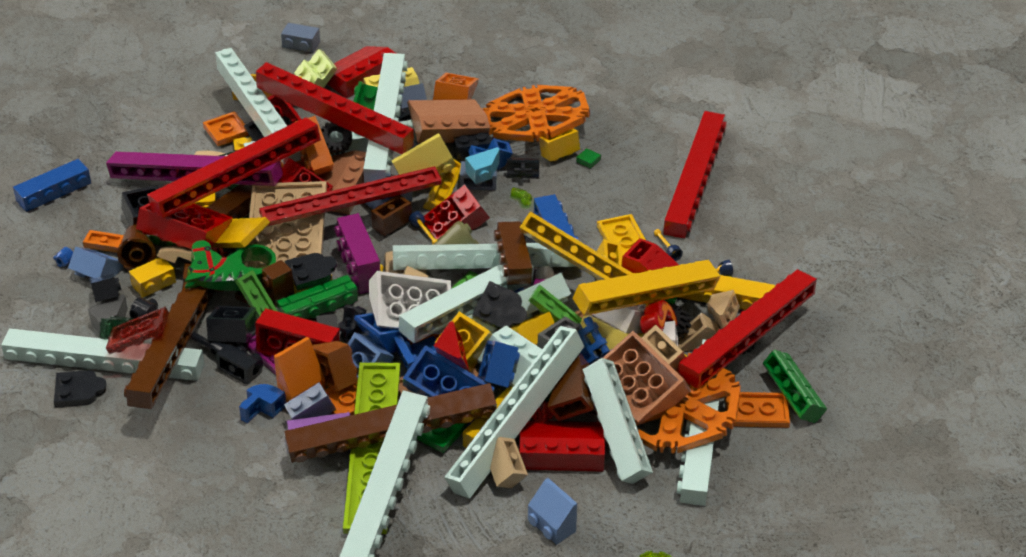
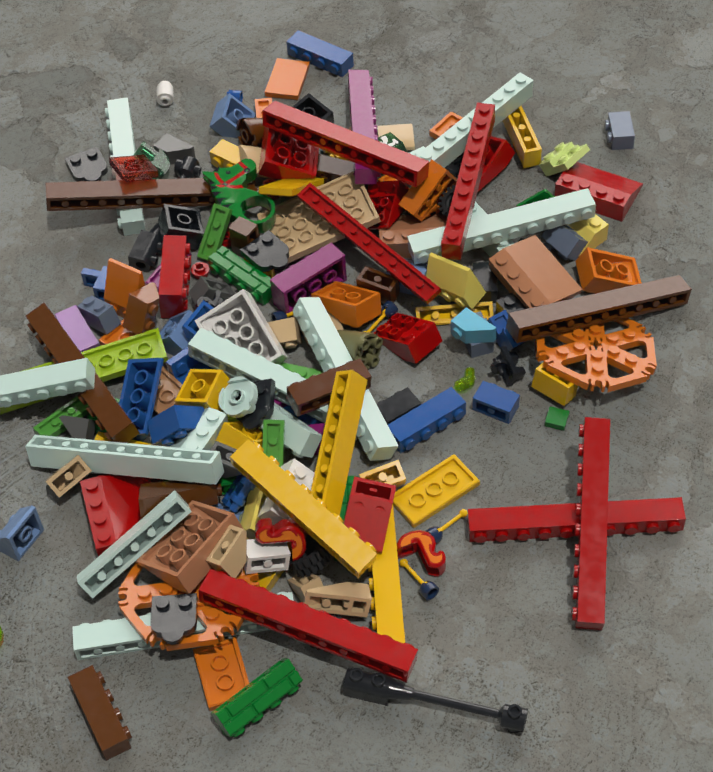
camera: 75 degrees right, 10 degrees up
(18, 305) = (164, 93): none -> white brick
(65, 217) = (287, 79): none -> tile
(105, 287) = (195, 132): black brick -> none
(404, 230) = (350, 303): none -> orange slope
(426, 467) = (53, 425): none -> bright green plate
(451, 346) = (166, 382): red slope -> none
(451, 445) = (79, 427): none -> dark grey slope
(491, 299) = (247, 401): none -> light aqua plate
(501, 96) = (597, 308): none -> brick
(558, 182) = (496, 402): none -> blue brick
(689, 255) = (426, 546): none -> red animal
(711, 405) = (174, 616): none -> plate
(712, 154) = (592, 524): none -> red brick
(771, 492) = (99, 712): none -> reddish brown brick
(811, 312) = (381, 688): none -> black bar

